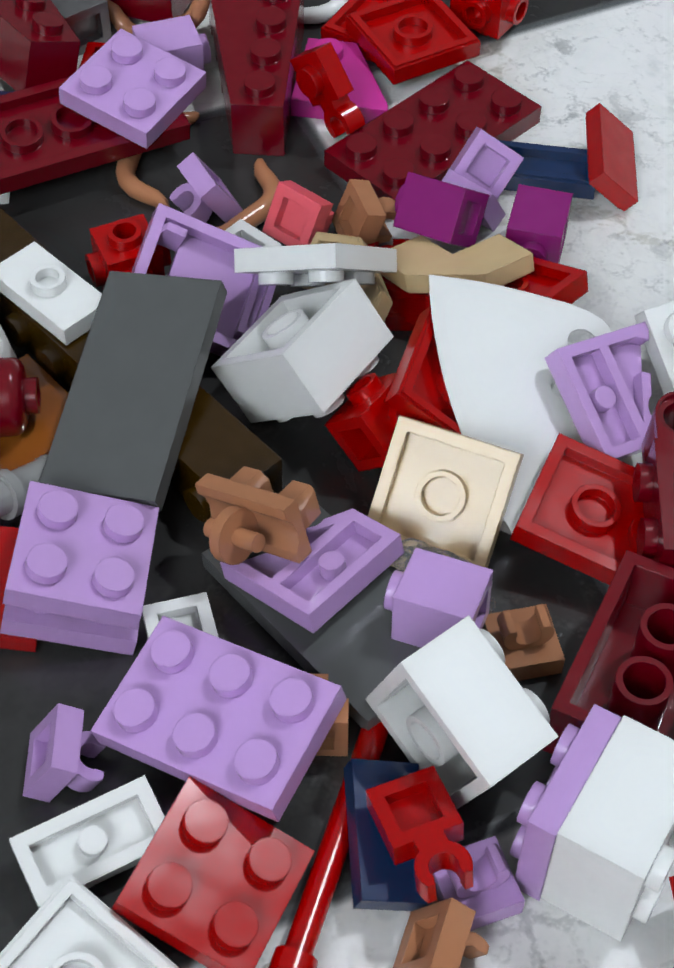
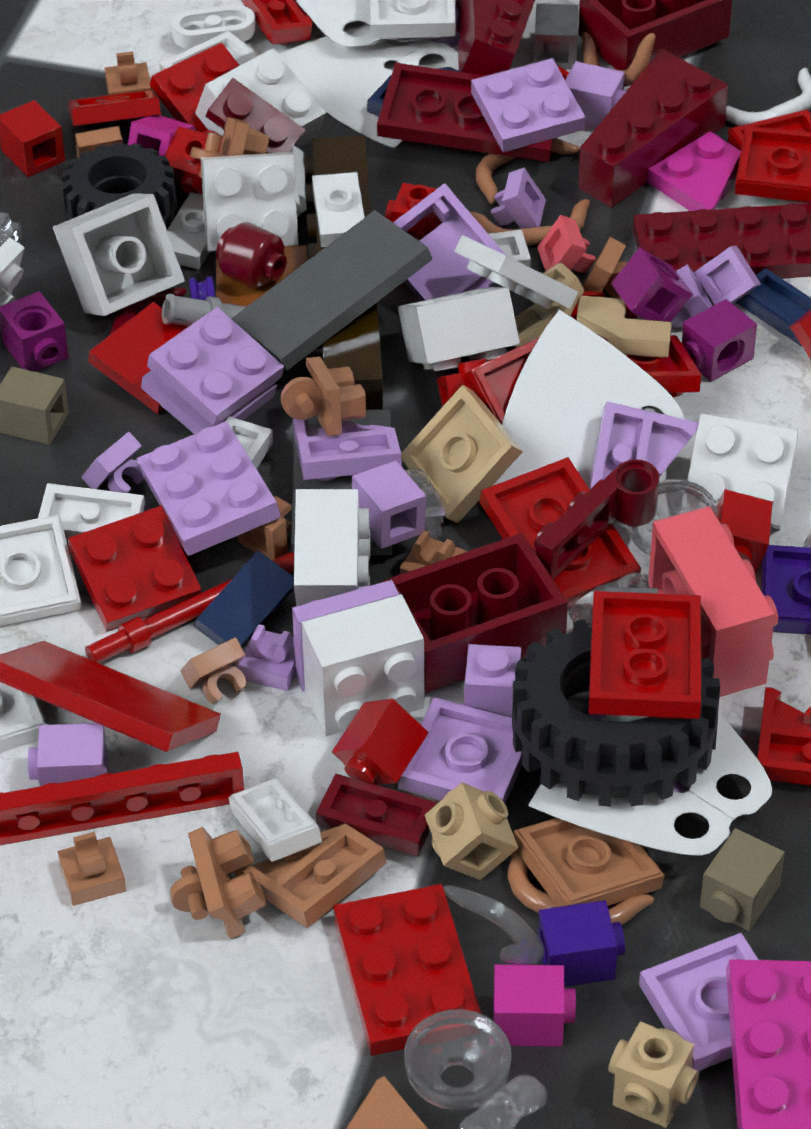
camera: 40 degrees right, 5 degrees down
(327, 84) = (663, 160): red plate -> none
(422, 824) = (253, 595): red plate -> none

